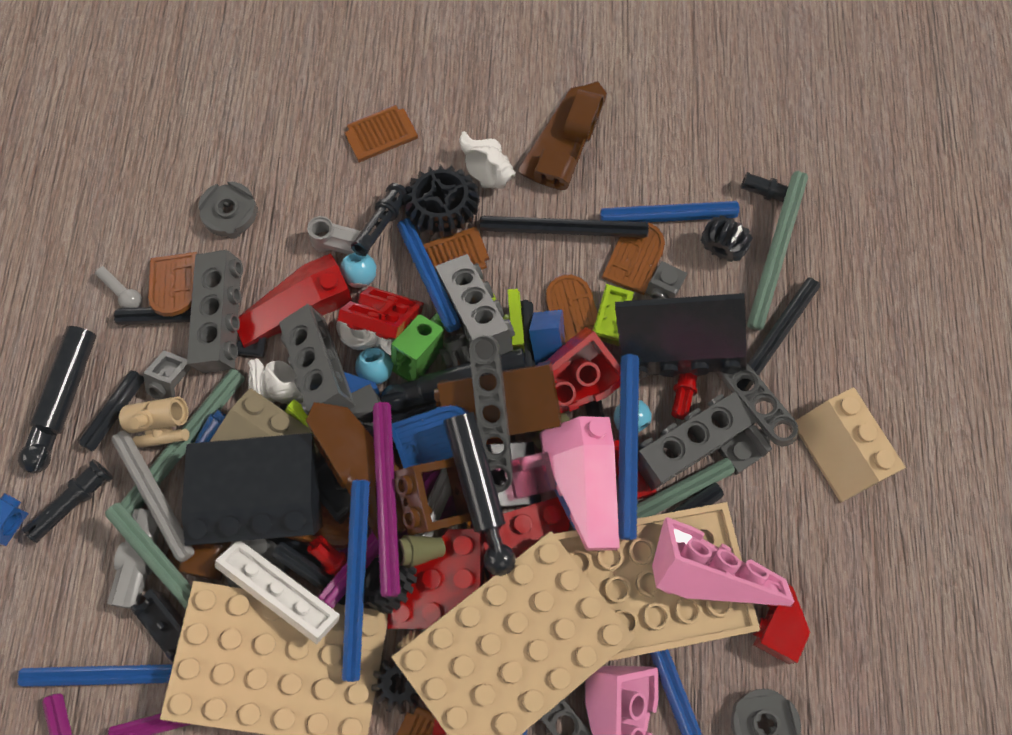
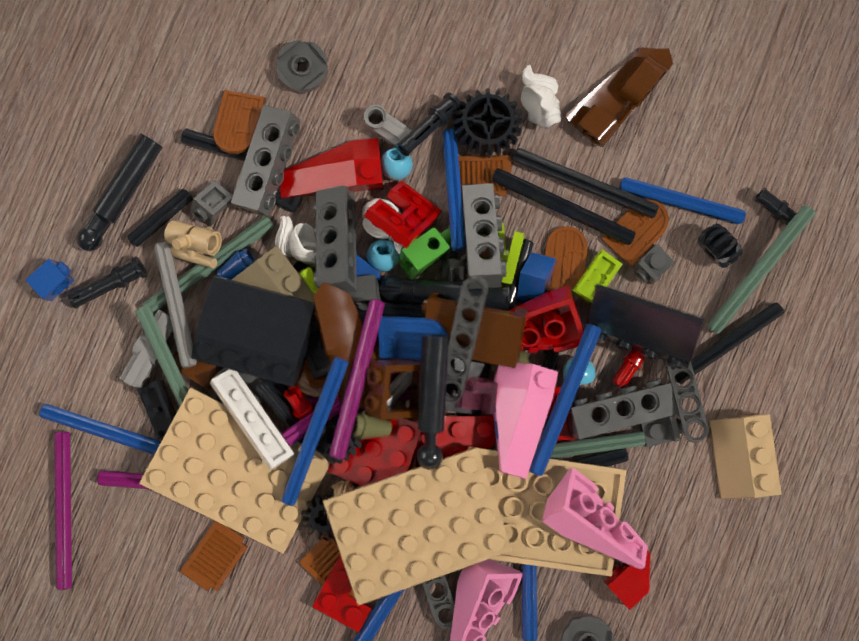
camera: 20 degrees right, 15 degrees up
(126, 297) = (196, 121): light grey bar -> none
(380, 132) = (456, 34): dark orange window -> none
(550, 255) = (563, 206): none -> black axle

